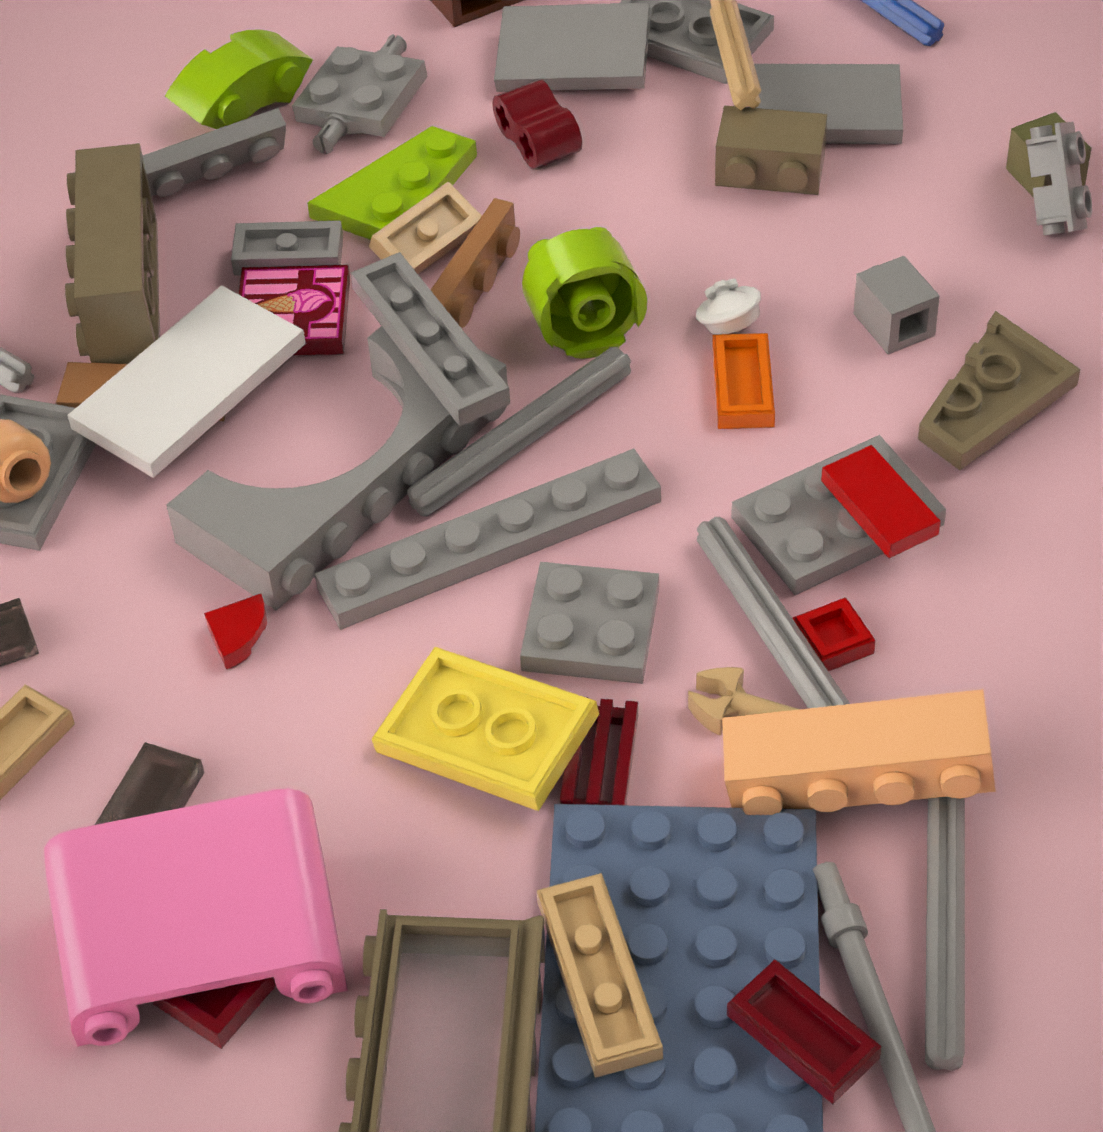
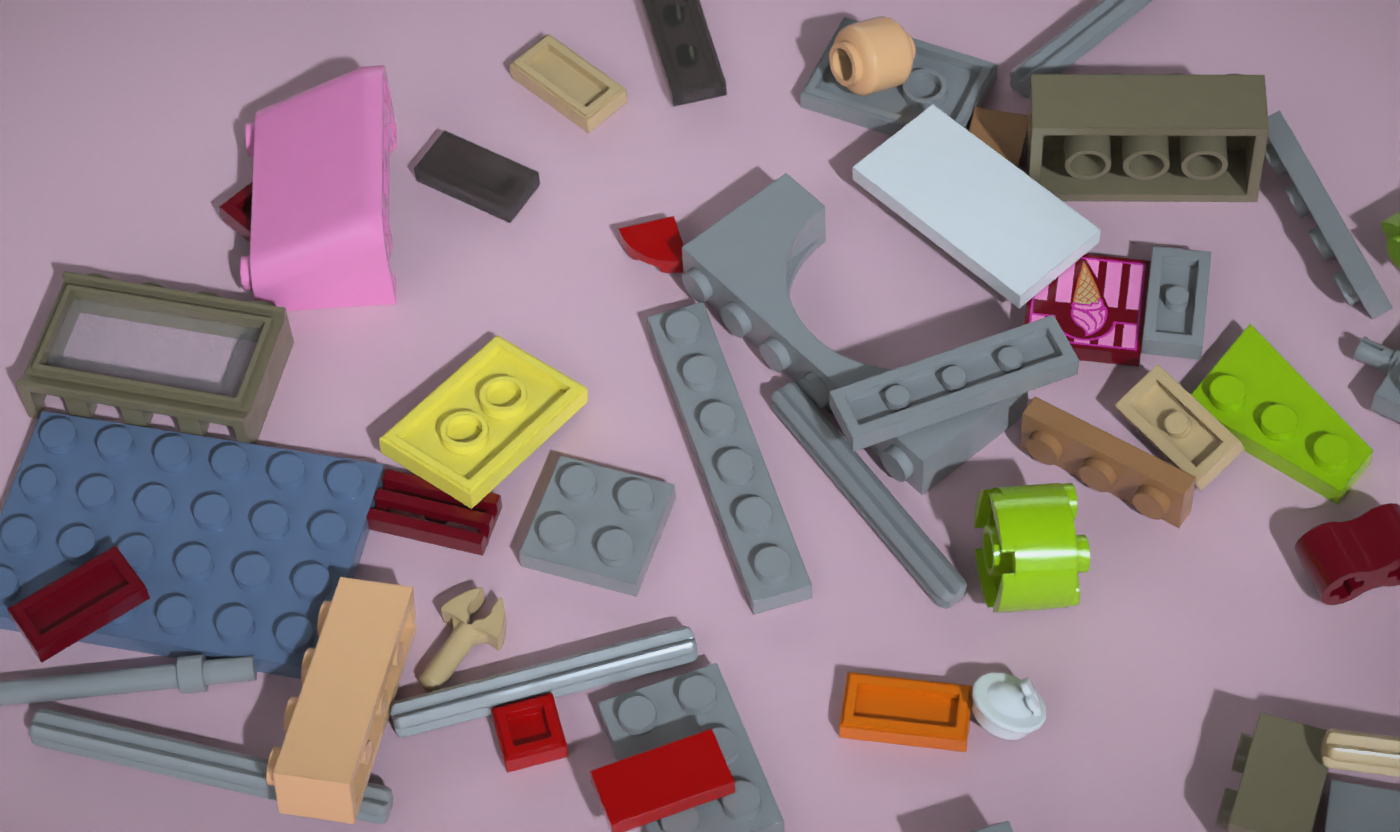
camera: 100 degrees right, 5 degrees up
(599, 975) = (182, 462): tan tile -> none

